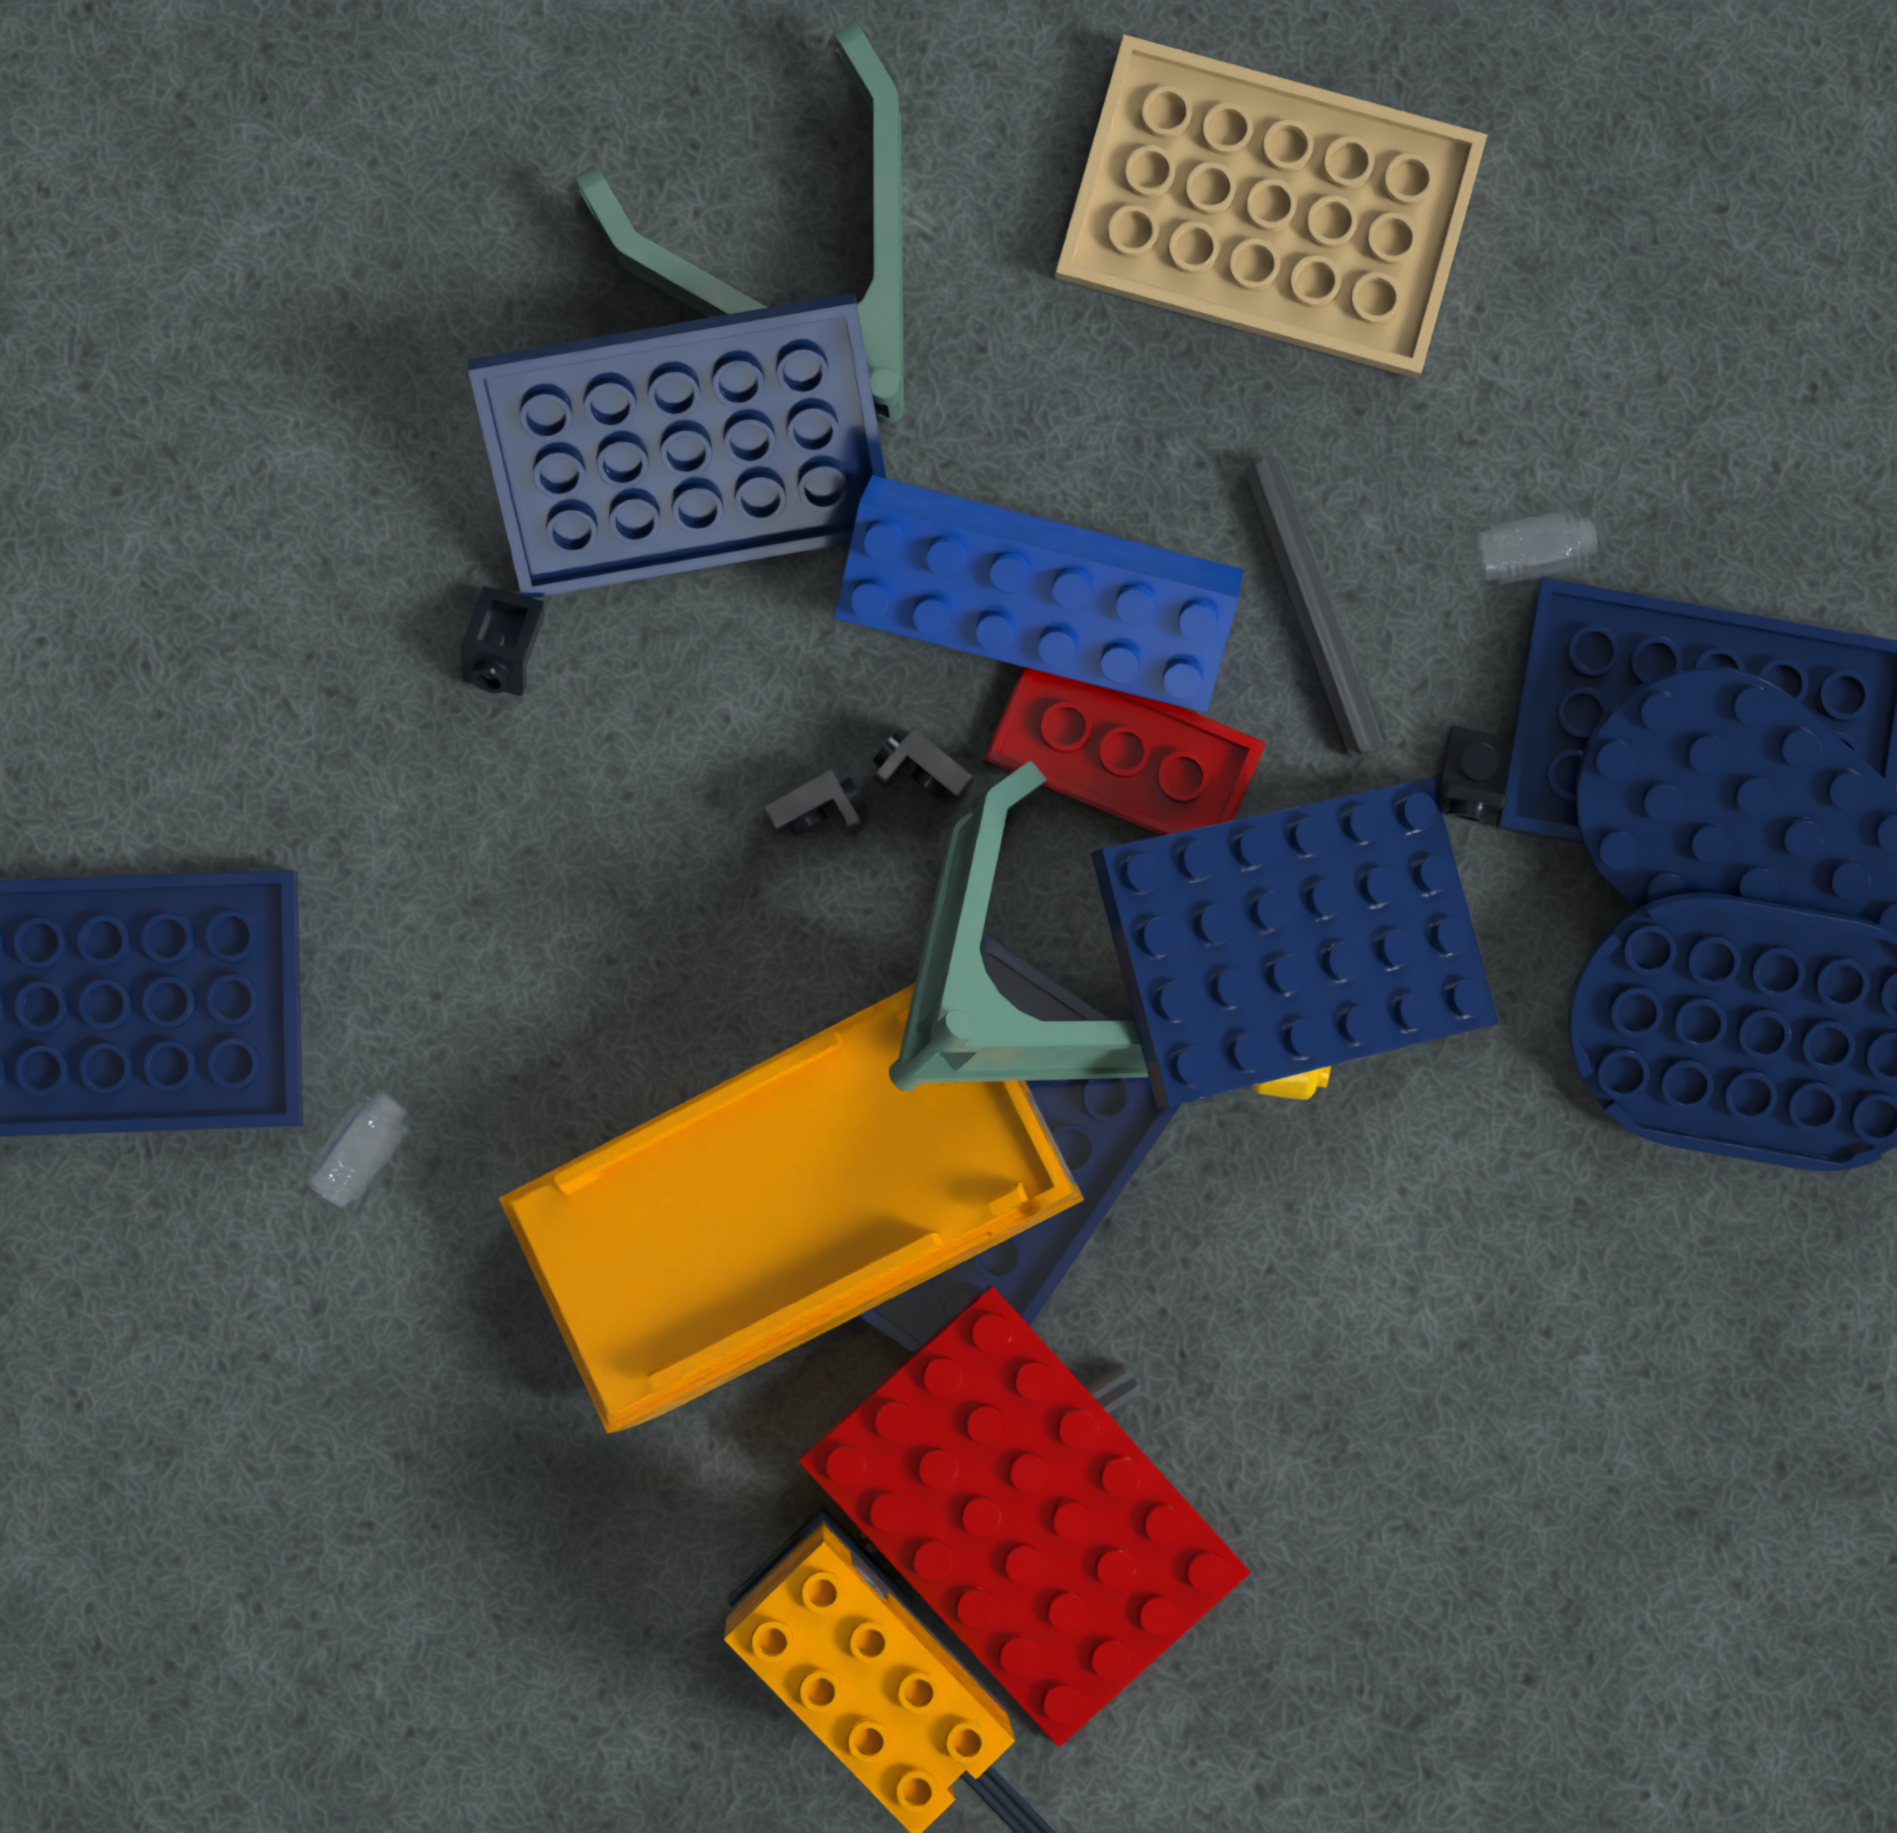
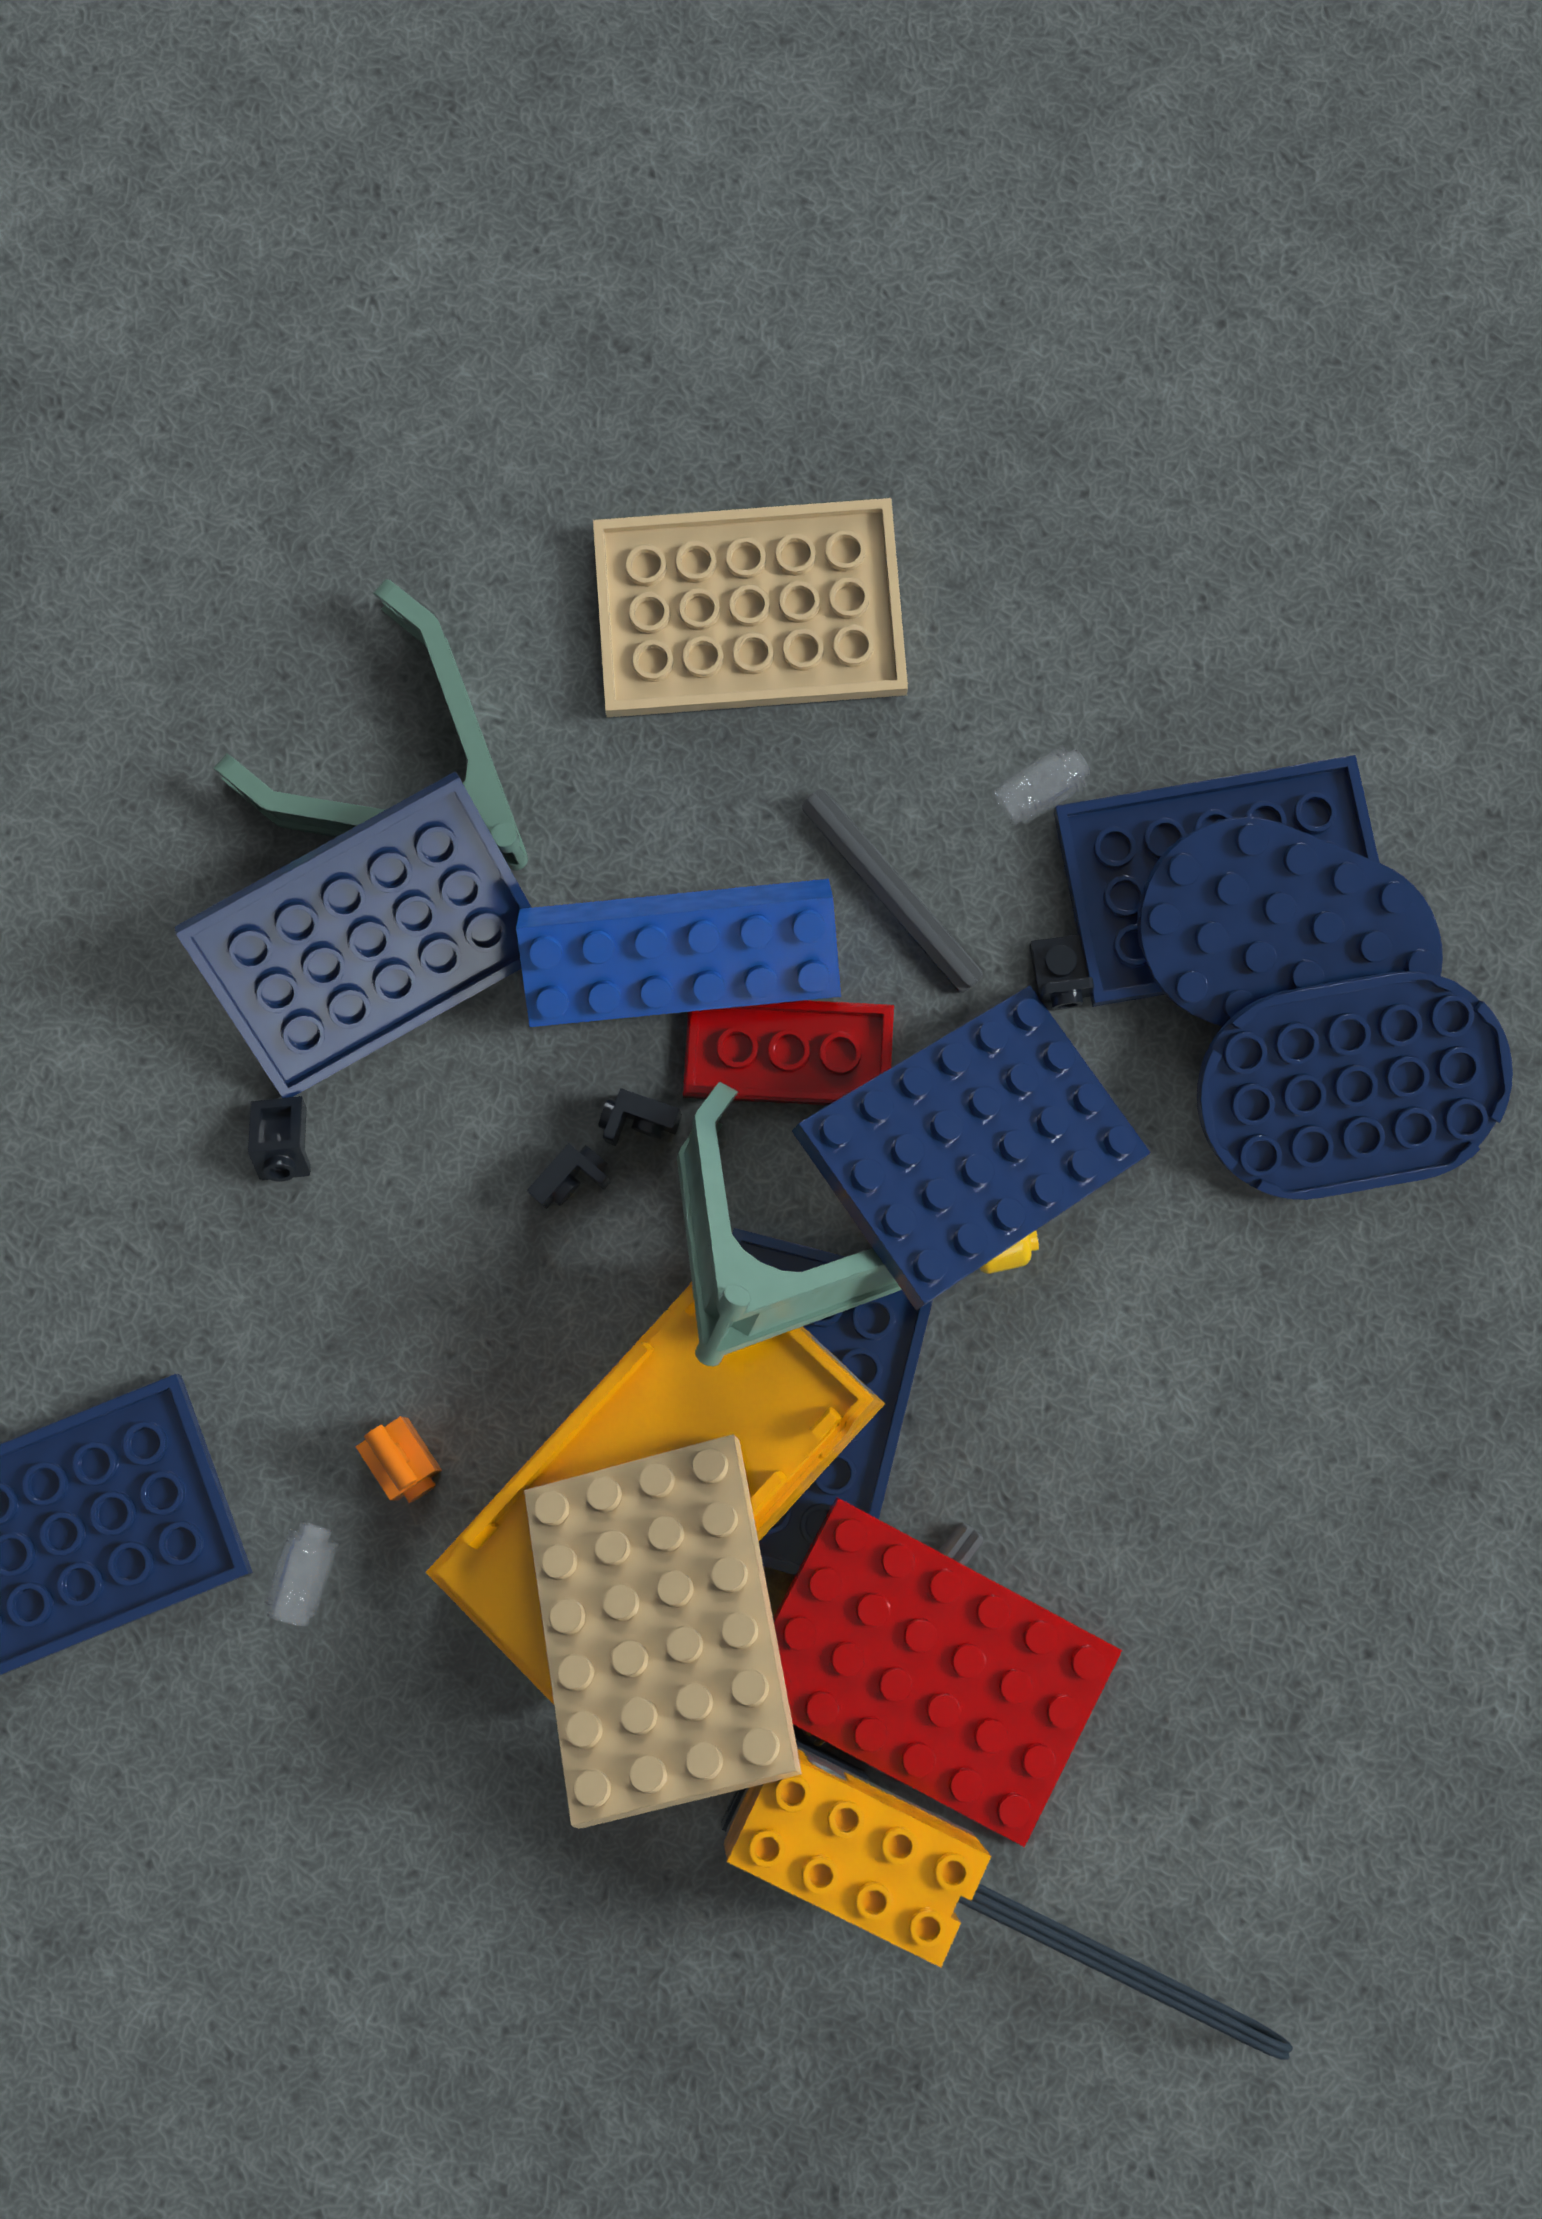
camera: 20 degrees left, 5 degrees down
(512, 1061) = (399, 1460): none -> orange brick
(738, 1362) = (659, 1633): none -> tan plate

